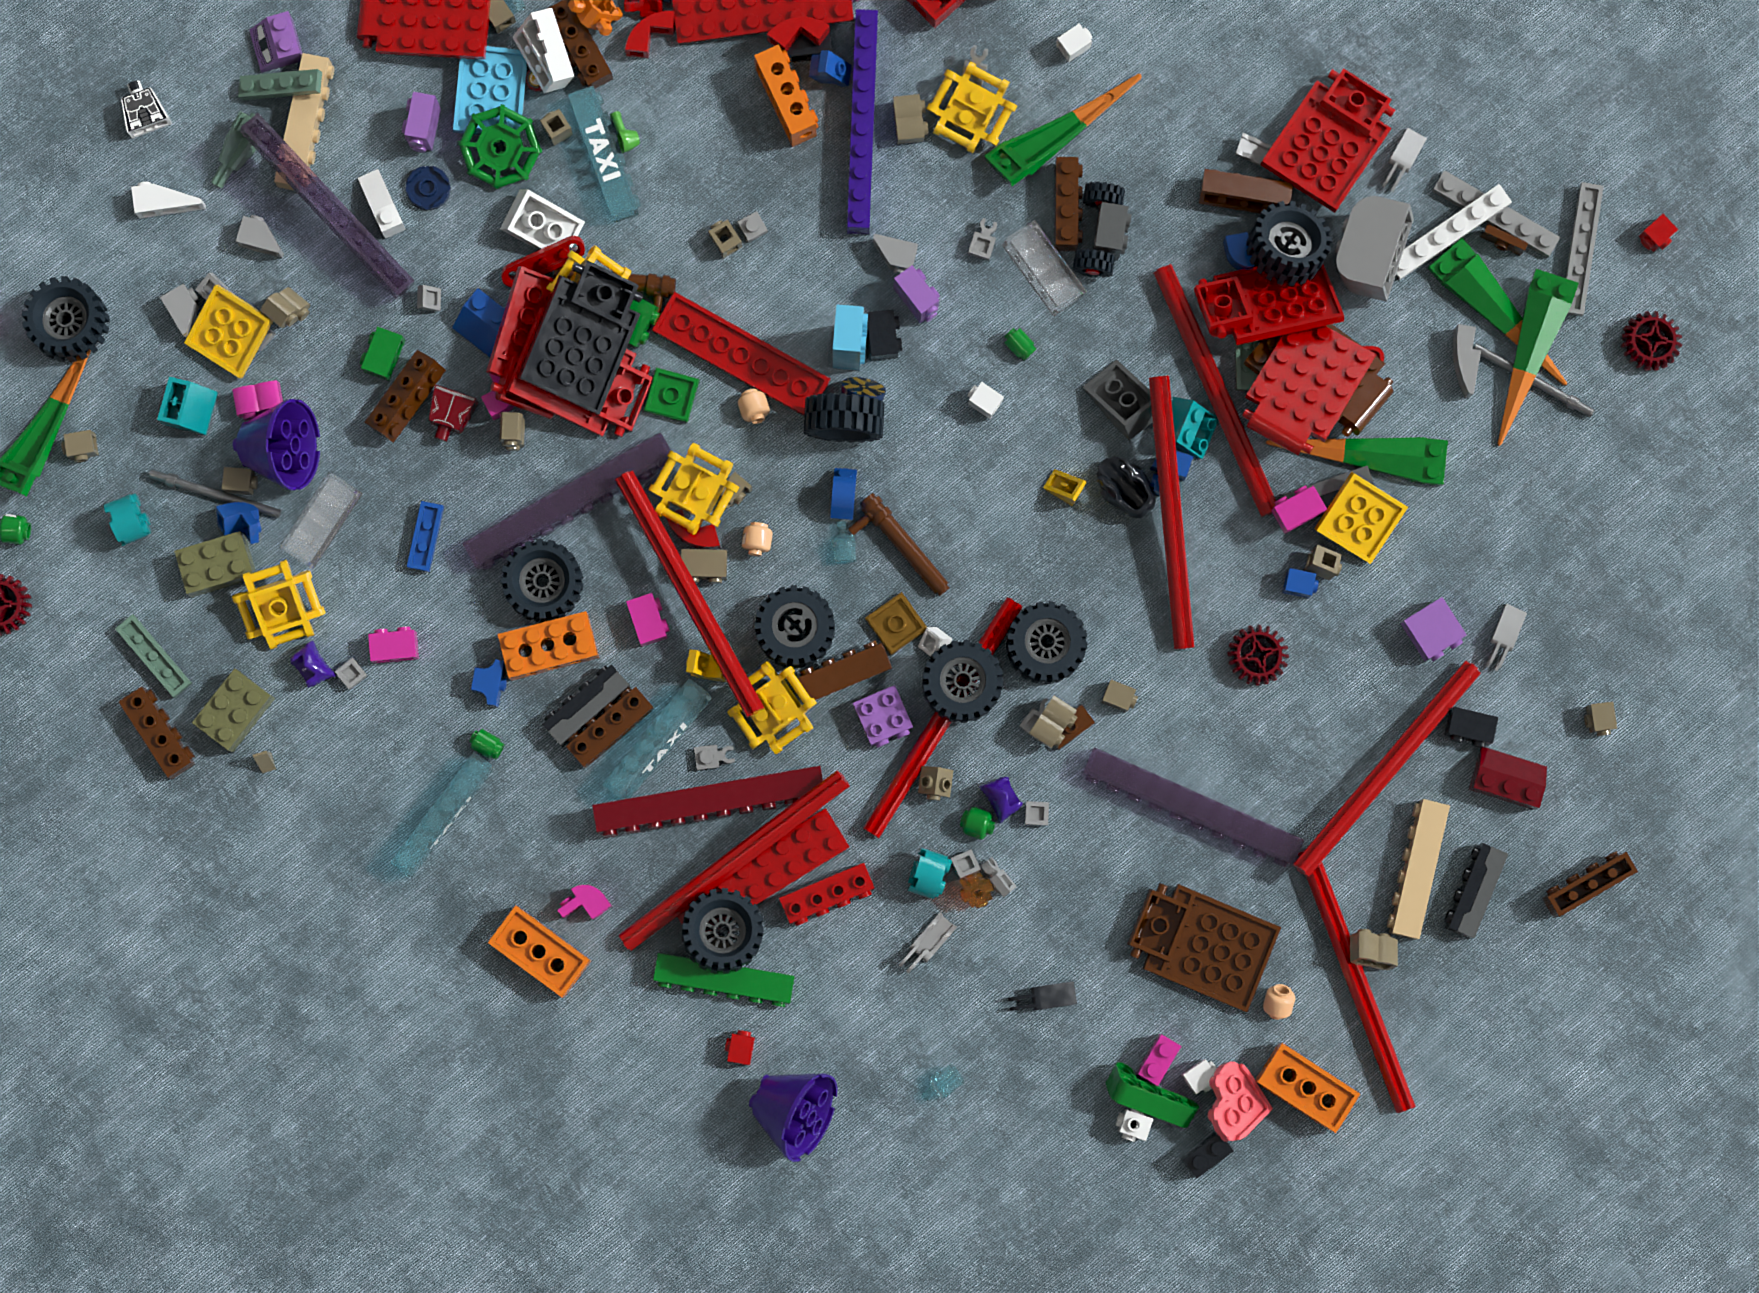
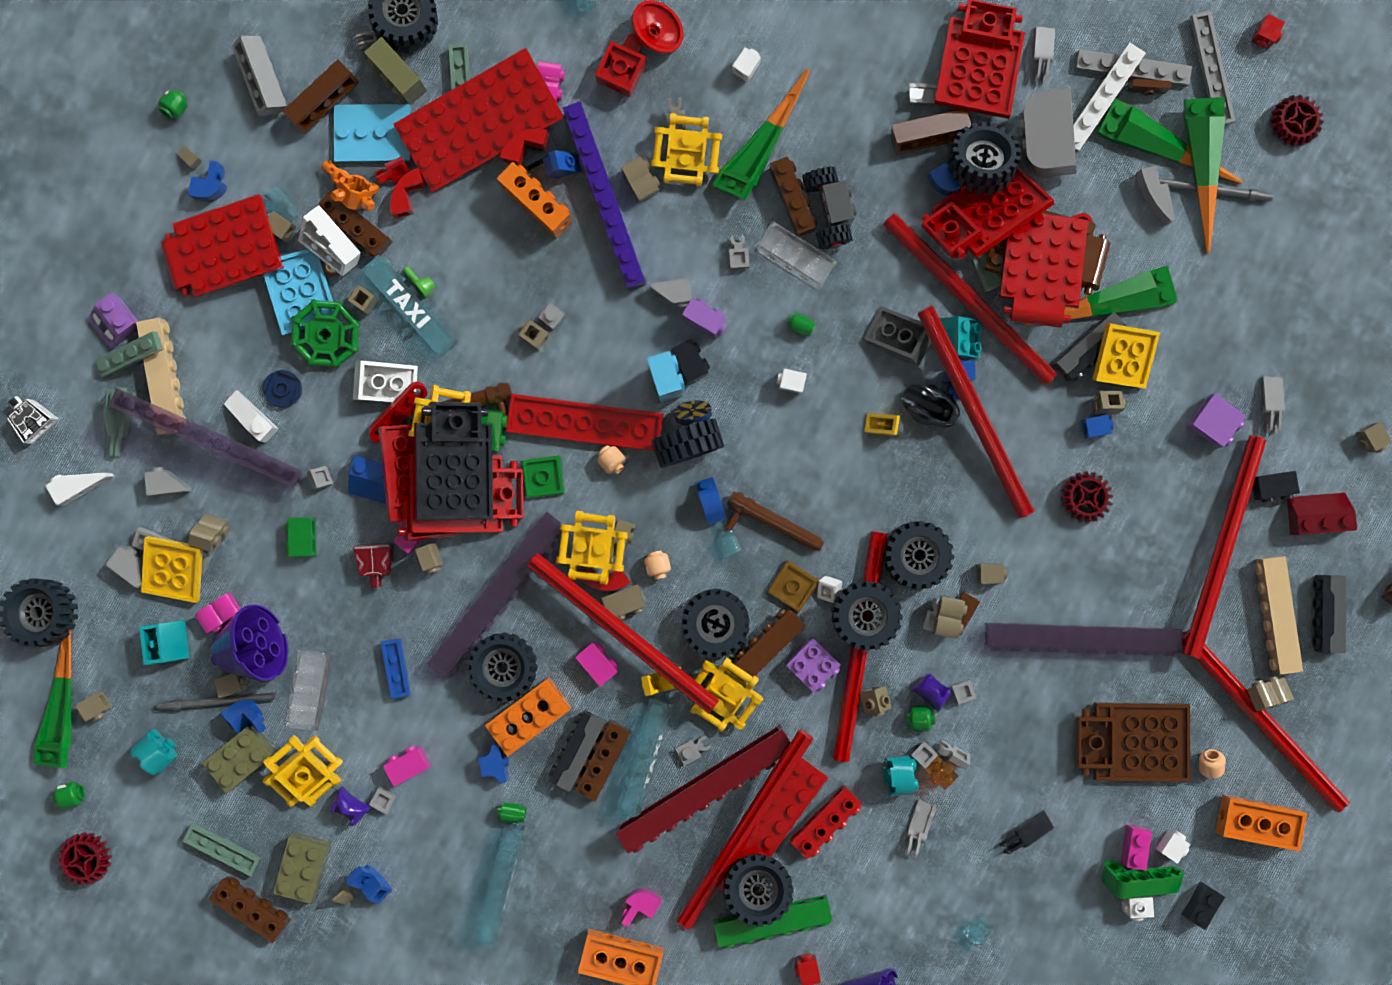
camera: 15 degrees left, 5 degrees up
(299, 756) = (370, 882): none -> blue brick
(392, 416) = (333, 564): reddish brown brick -> none
(421, 122) = (254, 339): medium lavender brick -> none
(1238, 1103) = (1213, 856): coral plate -> none
(1298, 509) = (1076, 369): dark pink brick -> none

